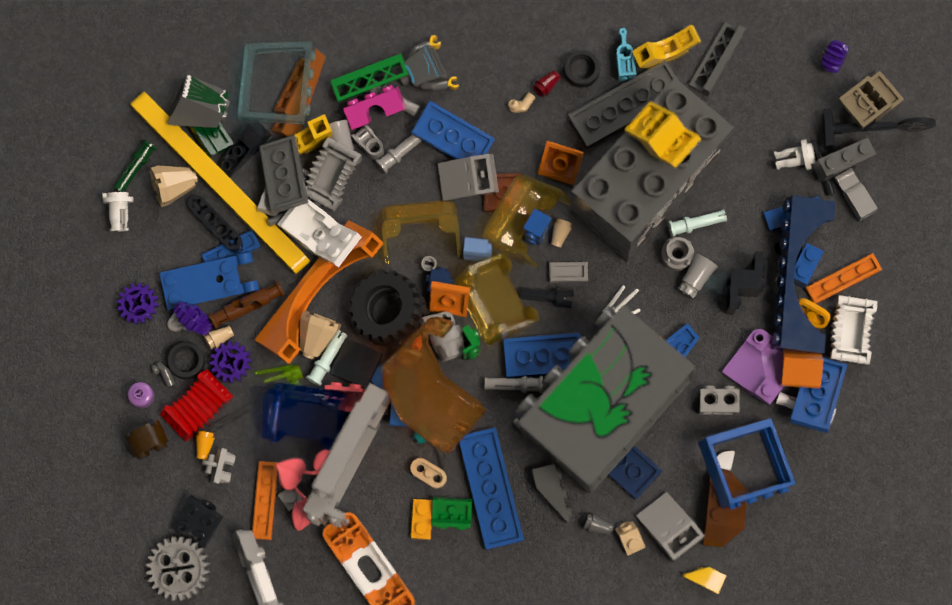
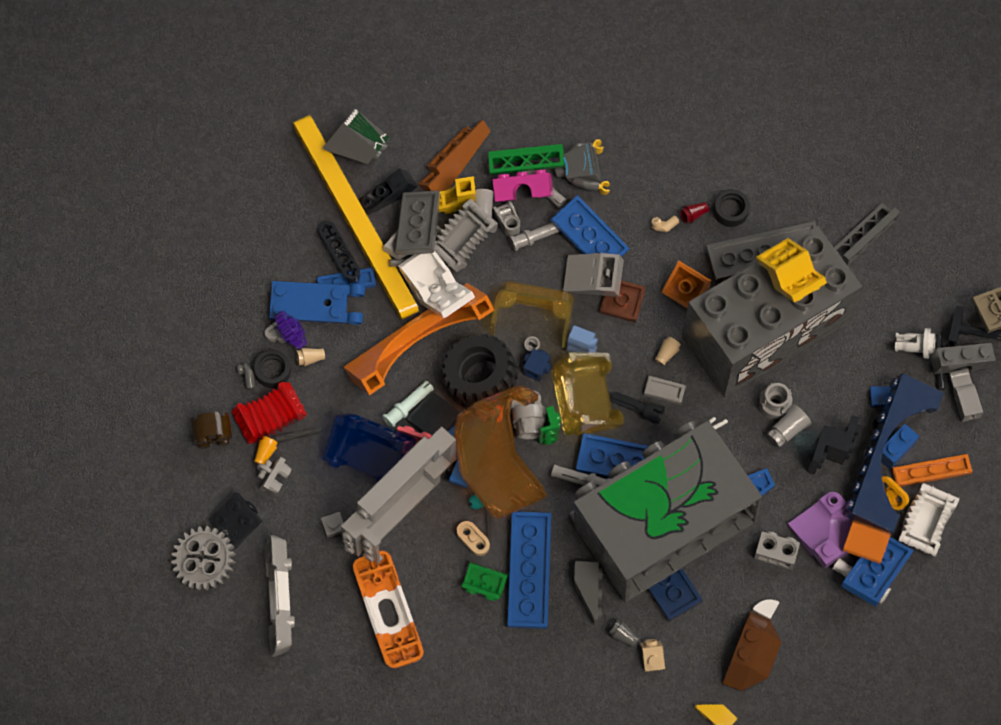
camera: 10 degrees right, 10 degrees down
(118, 209) = (251, 213): white piece -> none
(139, 159) = (286, 175): dark green pin -> none
(140, 297) = (244, 296): dark purple gear -> none
(145, 399) = (219, 387): medium lavender head -> none
(171, 183) = (309, 203): tan cone -> none
(212, 139) = (360, 174): dark green plate -> none
(234, 311) = (342, 334): reddish brown piece -> none
(237, 359) = (323, 380): dark purple gear -> none
(250, 52) = (420, 107): clear light blue windscreen -> none
(265, 500) = (307, 519): orange tile -> none
(291, 475) = (339, 497): coral plant -> none
(292, 373) = (370, 408): clear neon green plant -> none
(316, 333) = (404, 377): tan cone -> none
(422, 519) = (453, 580): light orange plate -> none
(449, 298) = (542, 379): orange tile -> none
(513, 212) = (631, 319): clear yellow windscreen -> none
(536, 227) = (646, 338): blue brick -> none
(623, 61) = (773, 211): medium azure piece -> none
(652, 54) = (822, 212): yellow arch -> none
(670, 526) = (695, 656): light grey slope -> none
(688, 224) = (793, 377): light aqua pin -> none
(775, 453) = (818, 607): blue window -> none
(834, 56) = (979, 261): dark purple gear -> none

